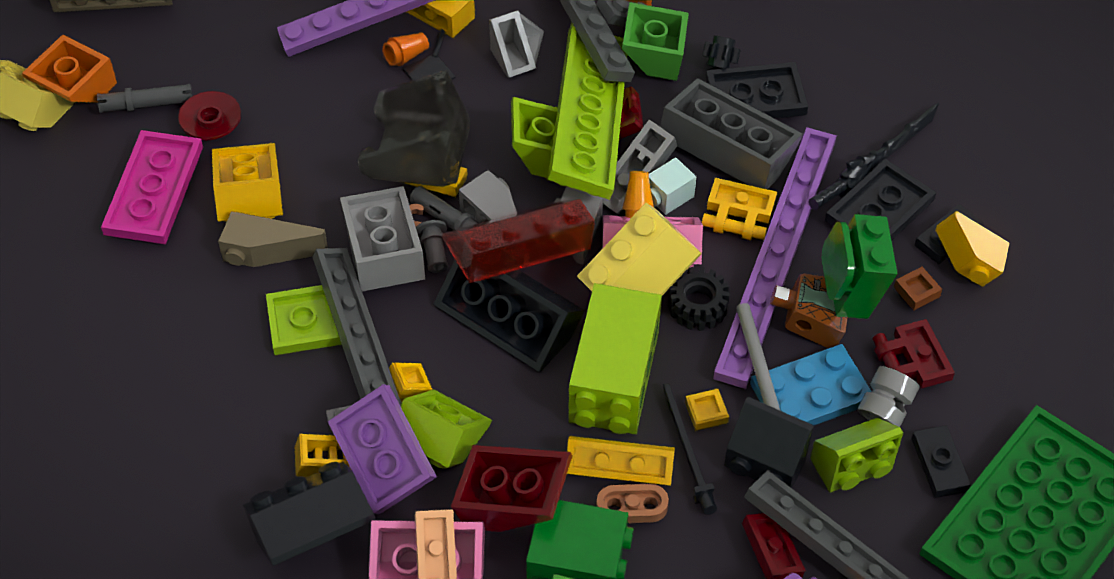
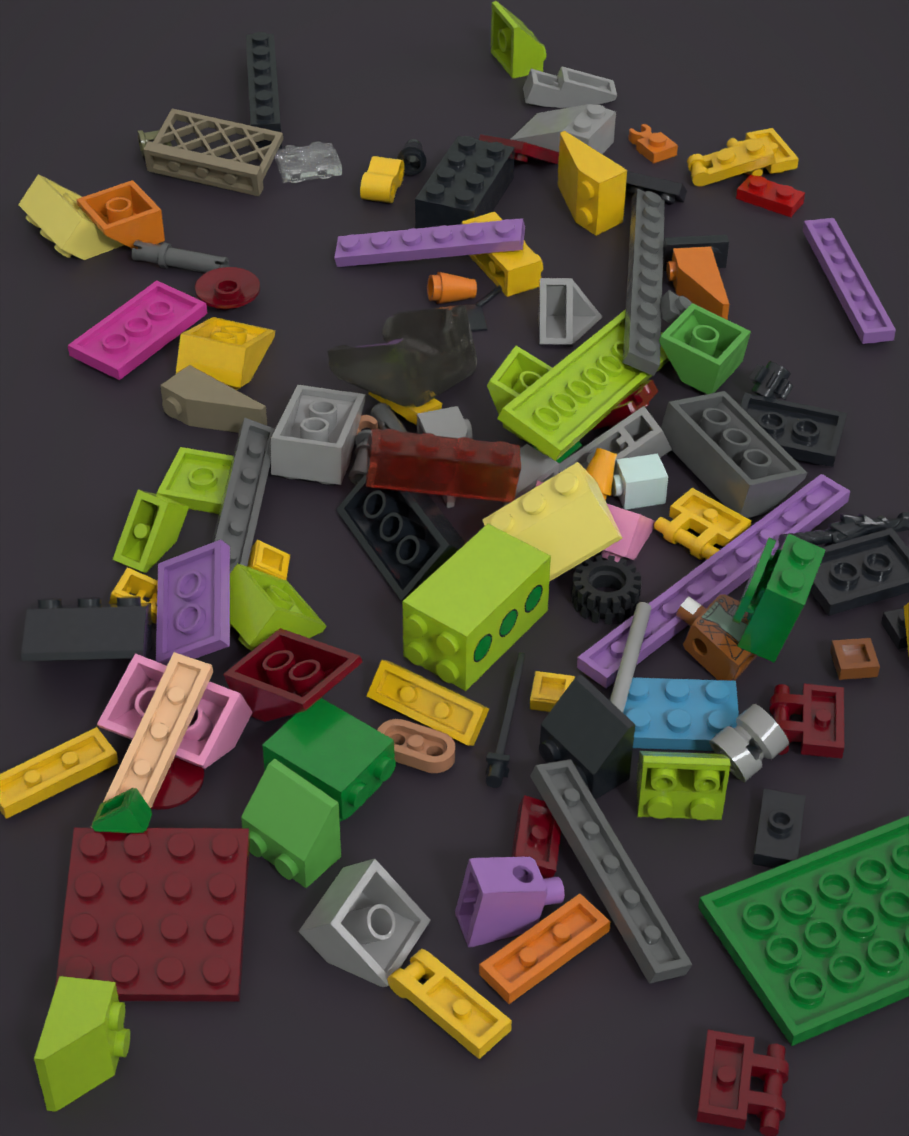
camera: 25 degrees right, 10 degrees down
(292, 389) = (149, 530): none -> lime slope

